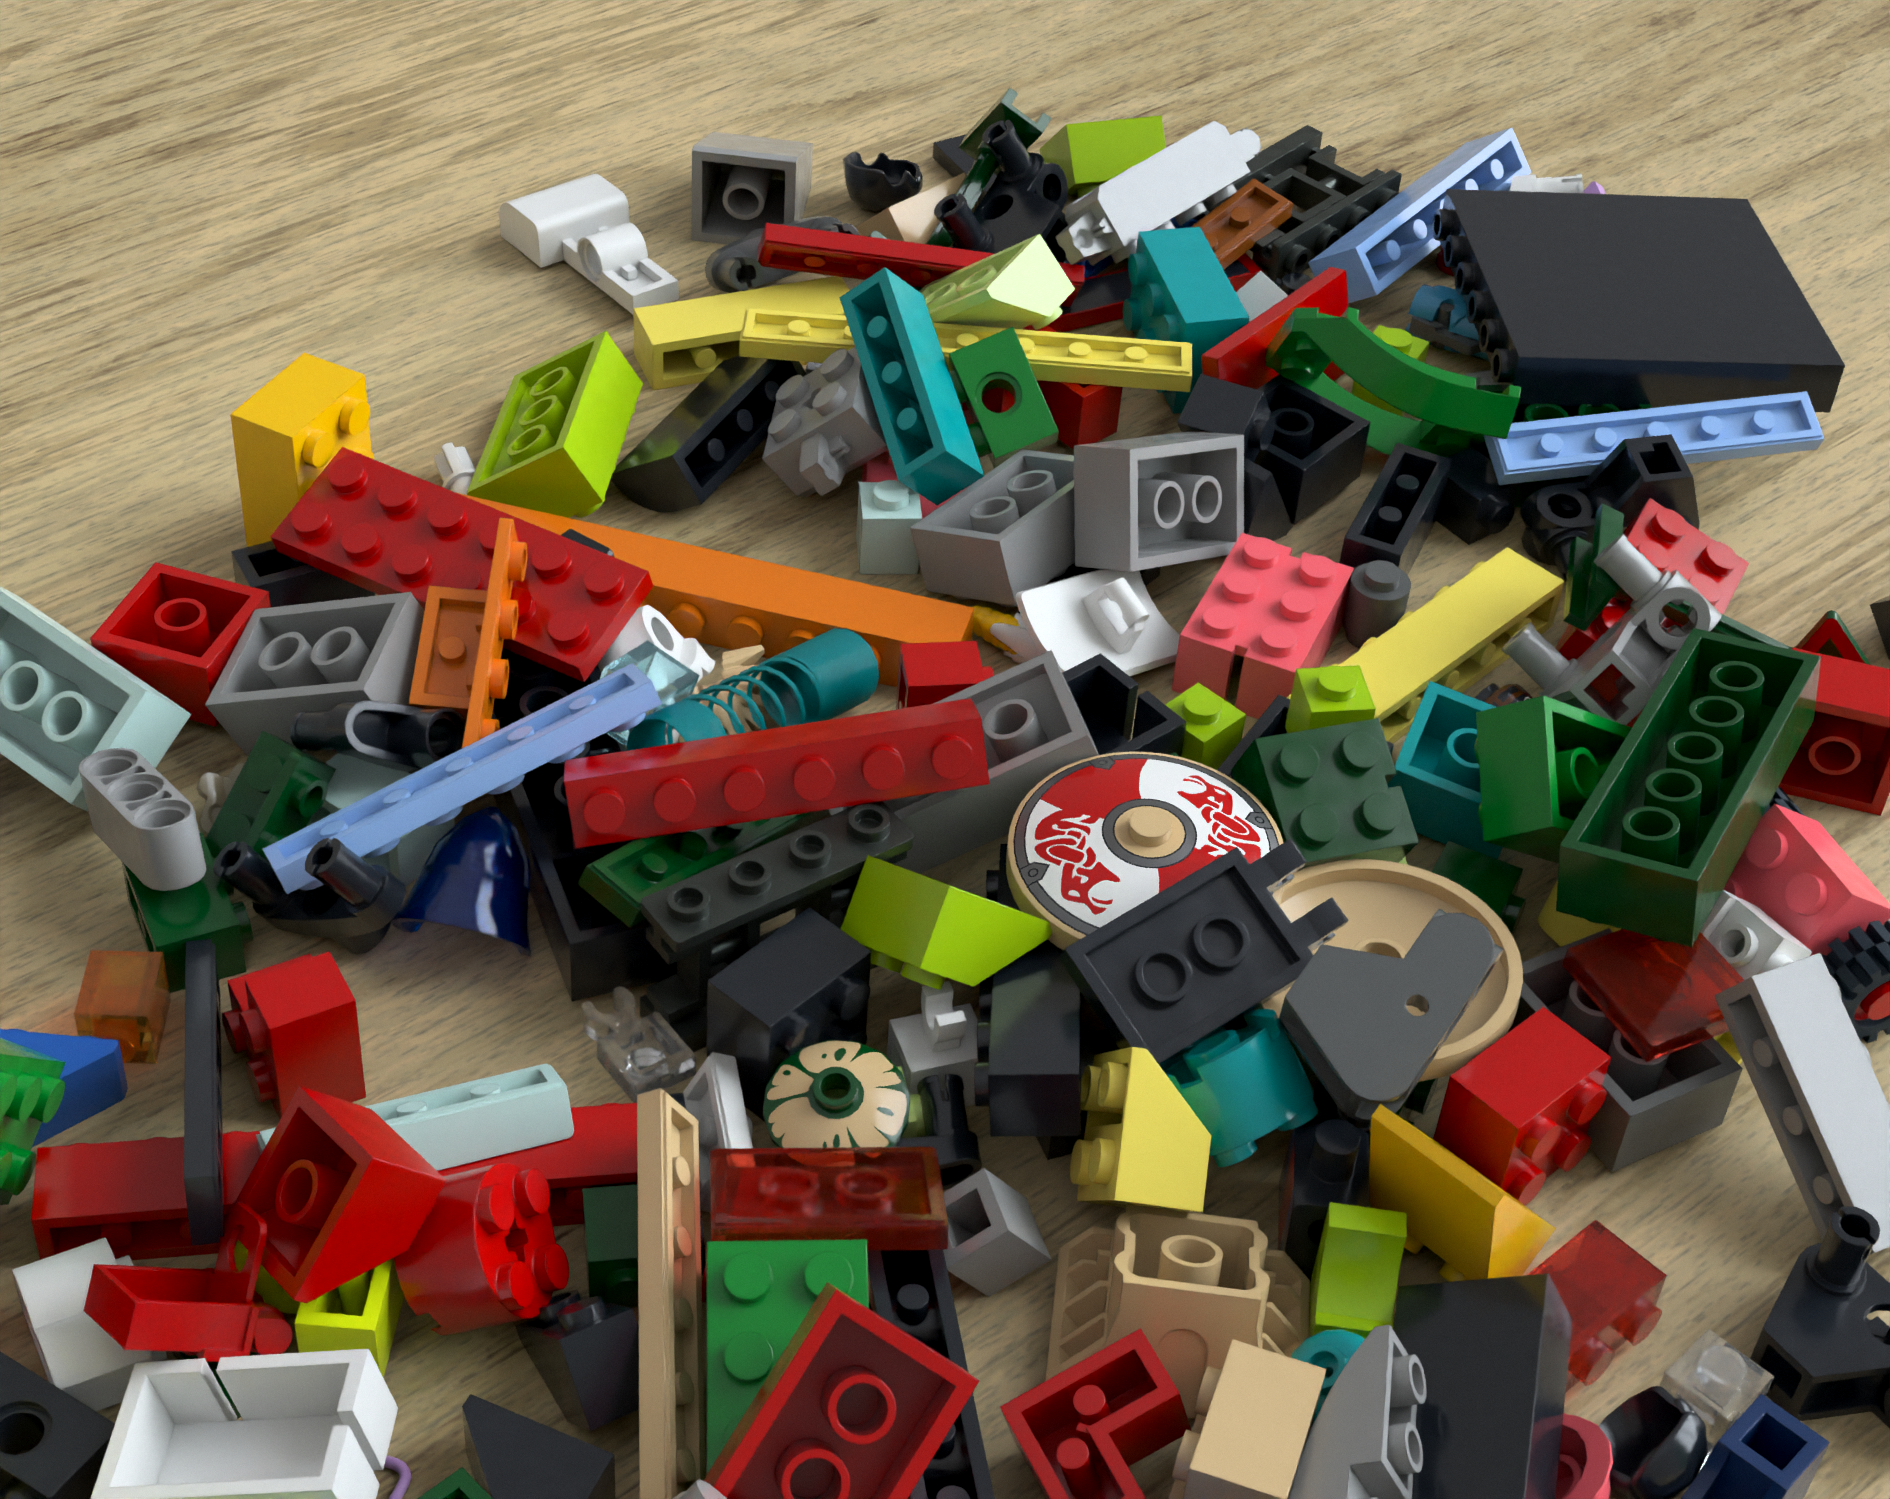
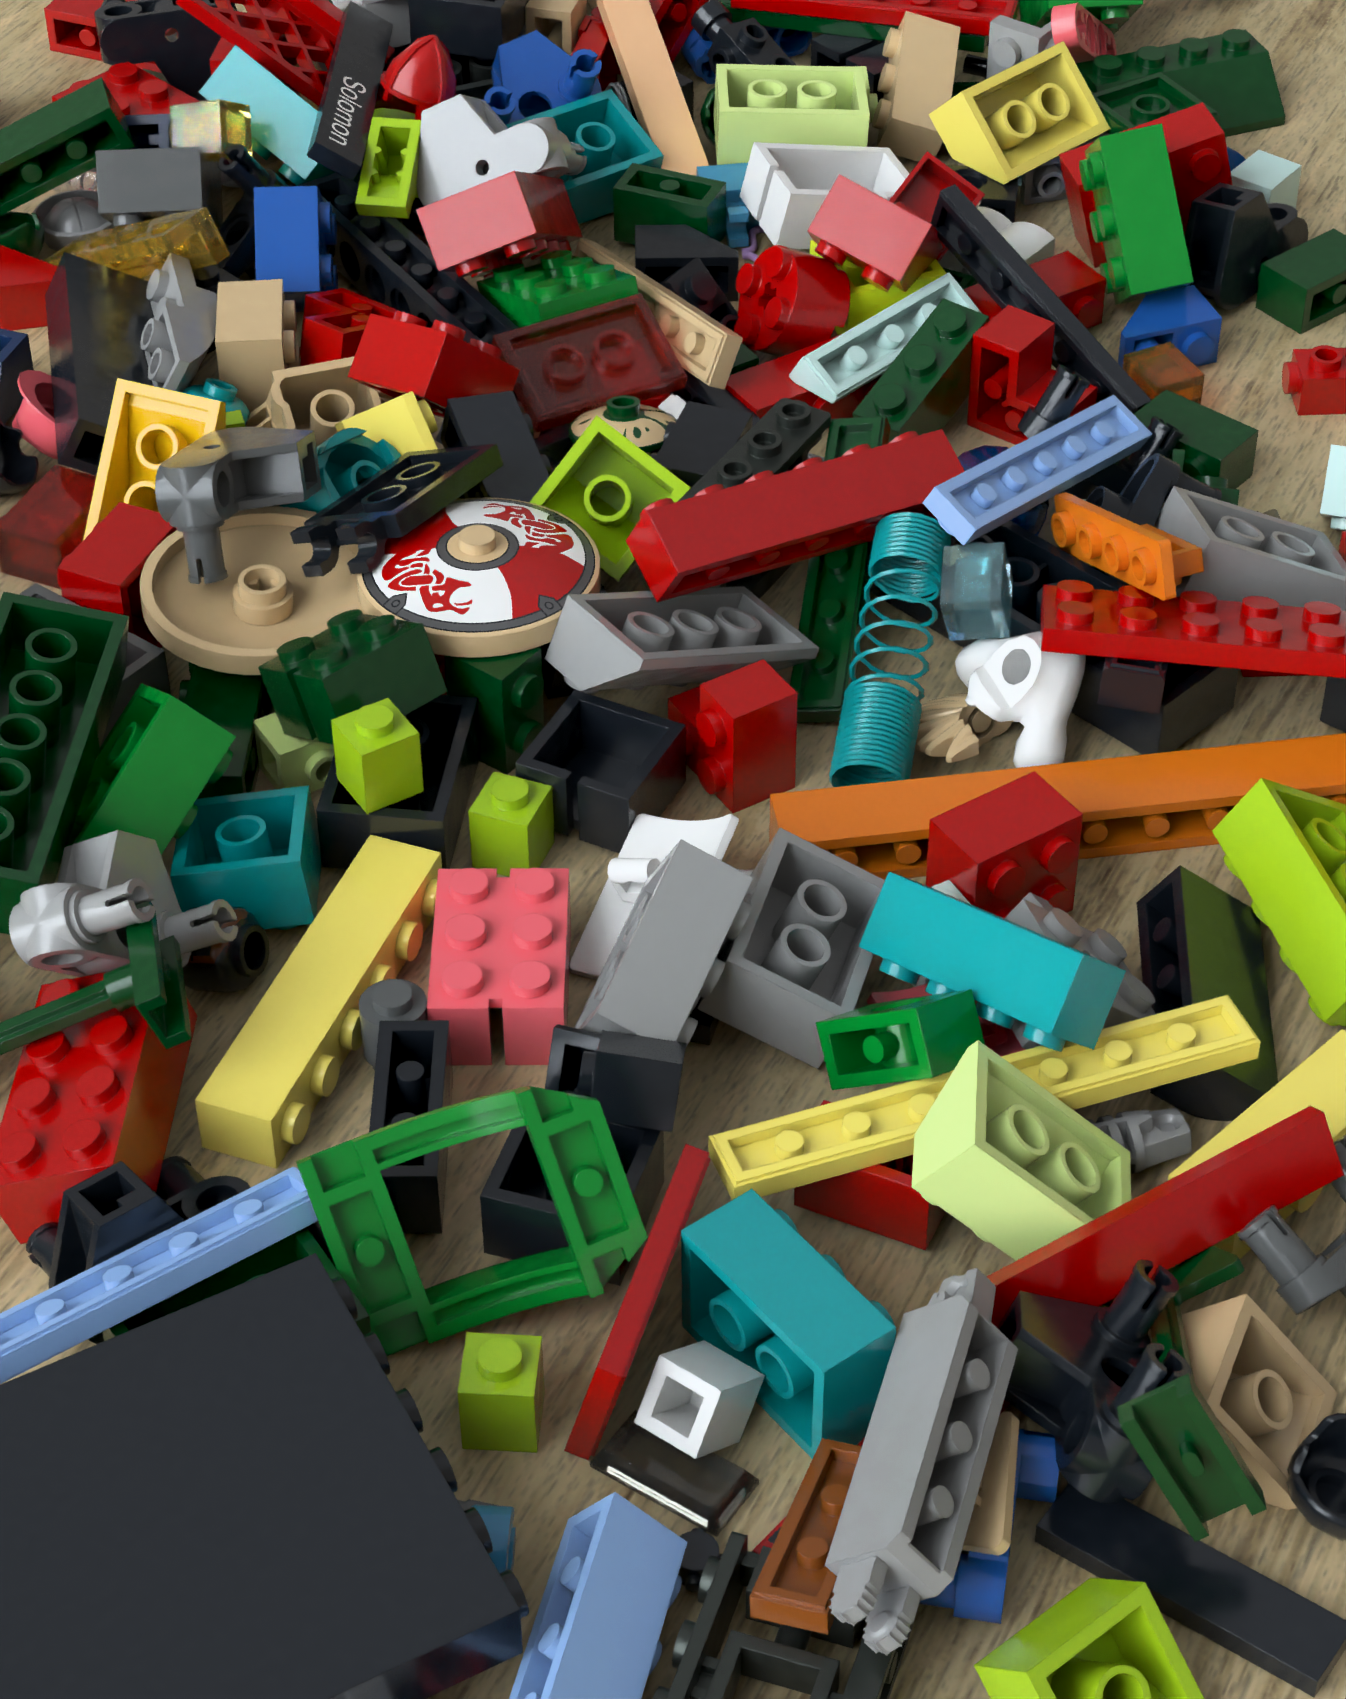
camera: 160 degrees right, 0 degrees up
(142, 819) = (1254, 419): light grey beam -> none
(418, 1045) = (928, 375): none -> dark green brick
(805, 515) = (1008, 846): none -> red brick
(1062, 1169) = (431, 362): none -> red brick

